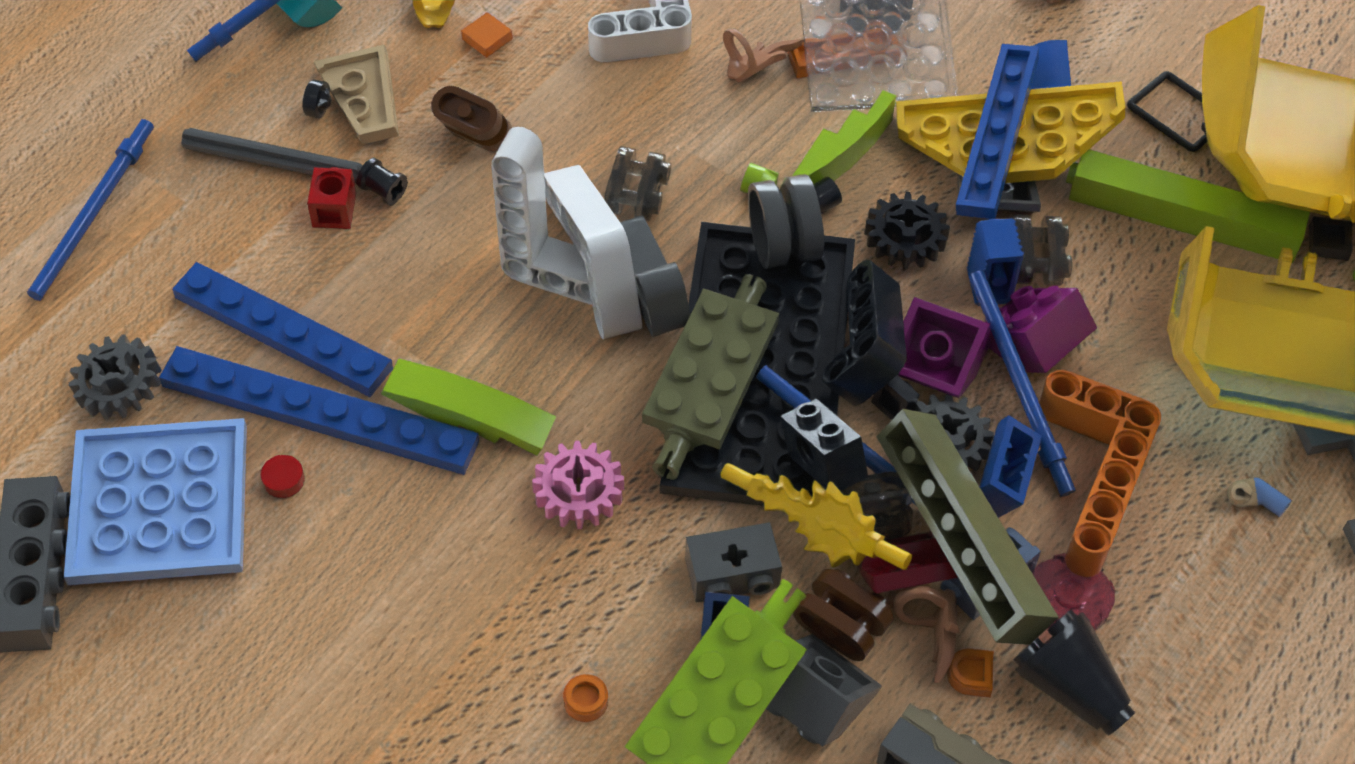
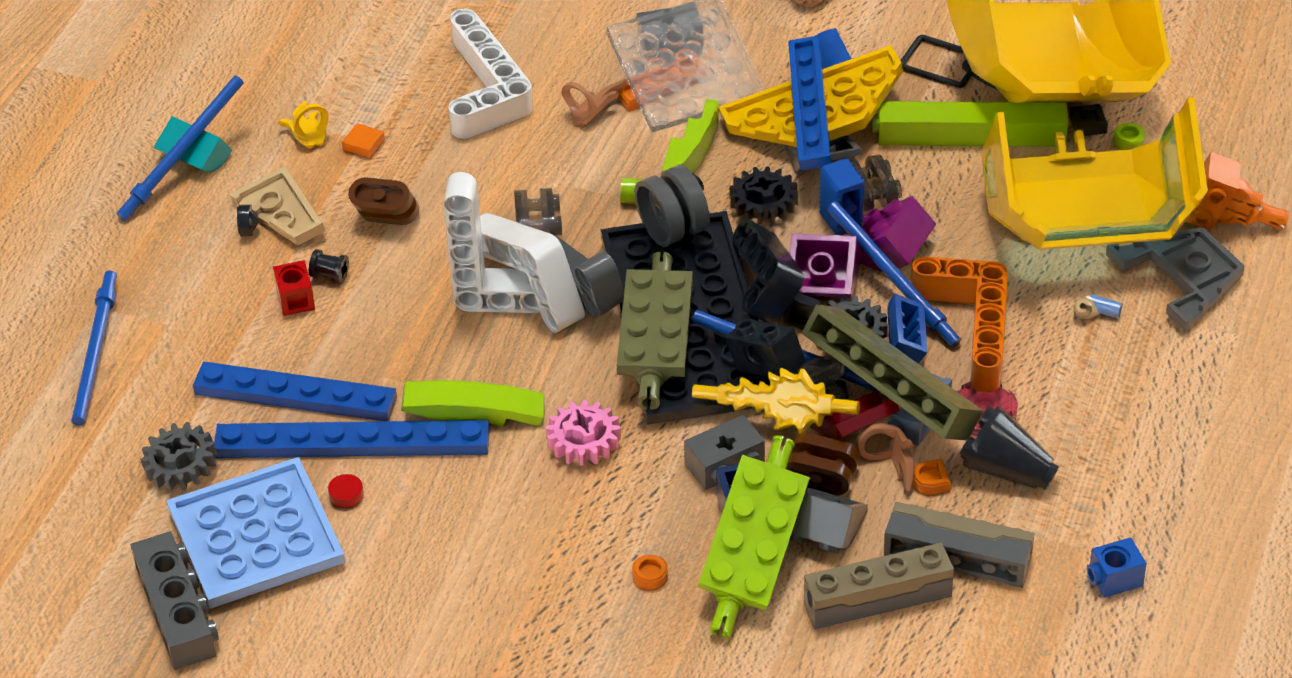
camera: 15 degrees left, 10 degrees down
(262, 153) = (215, 272): dark grey axle -> none

